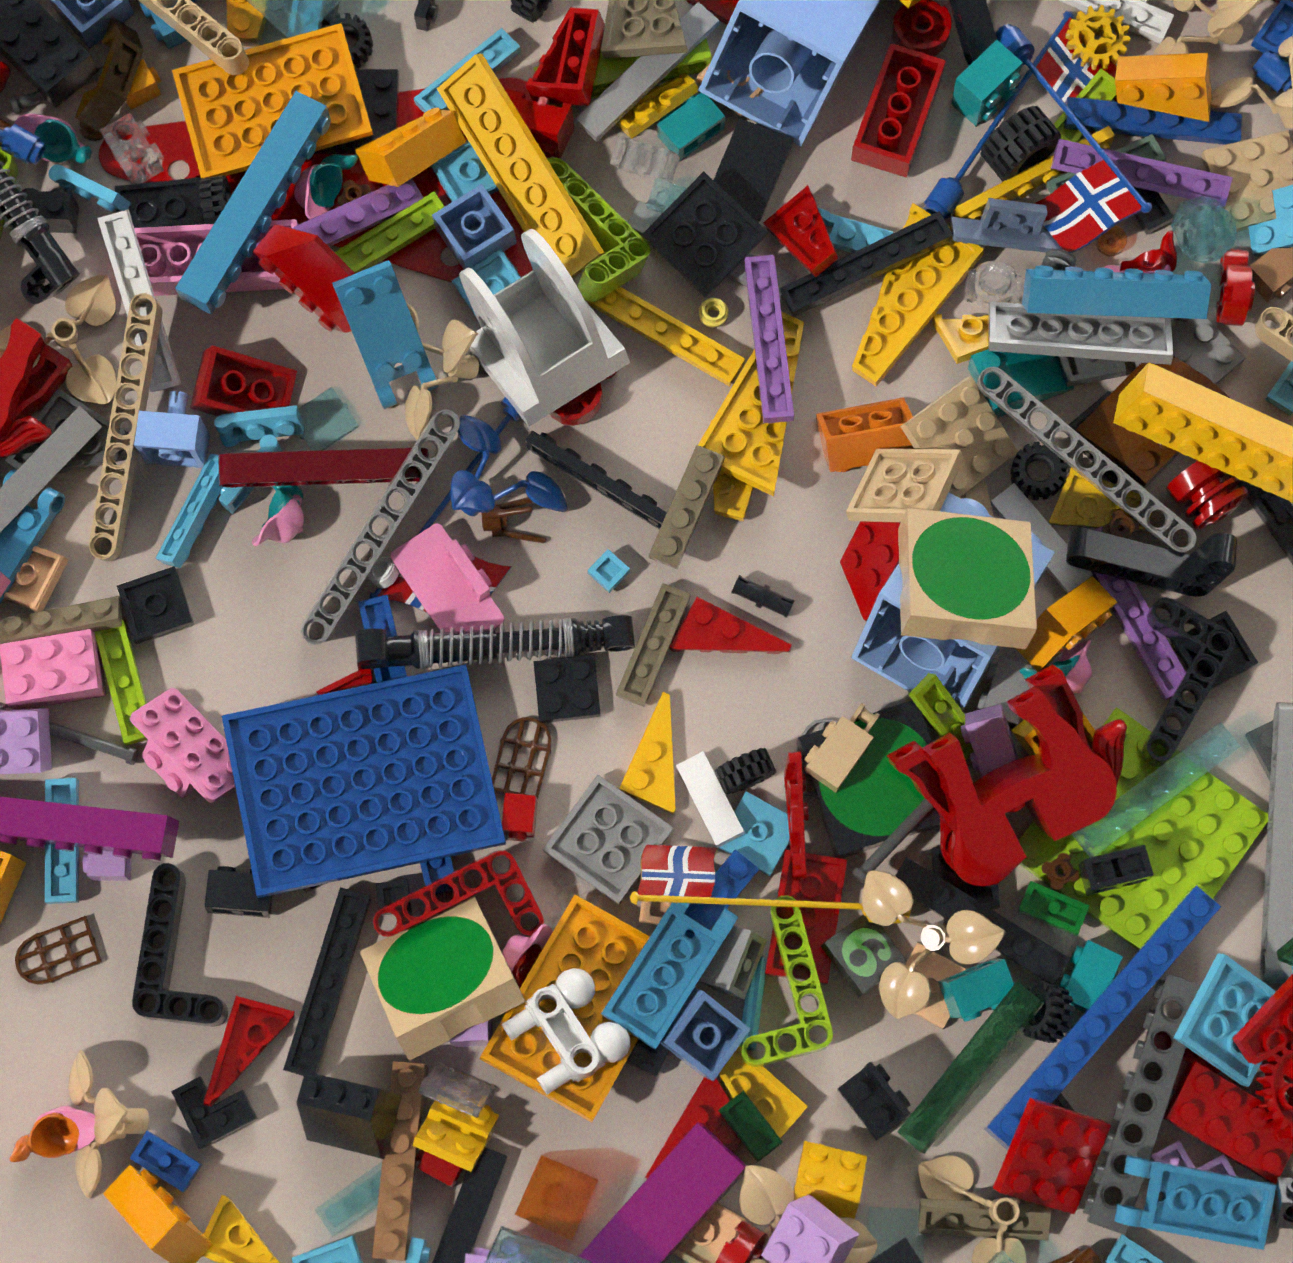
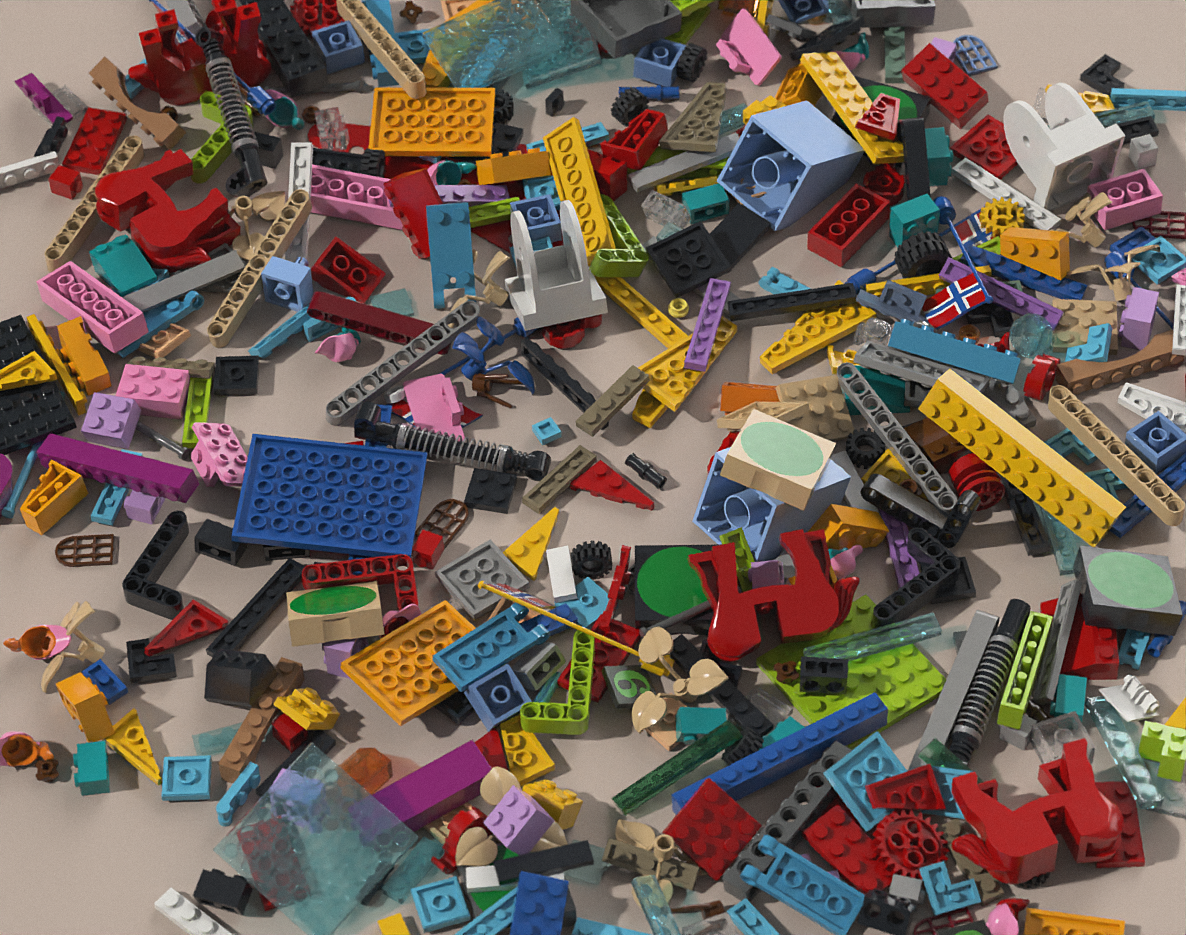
camera: 15 degrees right, 25 degrees down
(87, 188) = (288, 136): medium azure plate -> none
(117, 76) = (333, 86): dark brown slope -> none
(144, 86) = (350, 97): light orange brick -> none
(253, 203) = (406, 157): dark azure brick -> none
(257, 423) = (361, 292): medium azure plate -> none
(457, 1089) = (318, 686): clear tile -> none
(606, 1044) = (402, 650): white piece -> none
(750, 1126) = (508, 757): dark green tile -> none
(803, 232) = (756, 275): red wing -> none
(841, 748) = (660, 554): tan brick -> none
(875, 1100) = (604, 773): black bracket -> none
(1053, 908) = (773, 693): green plate -> none

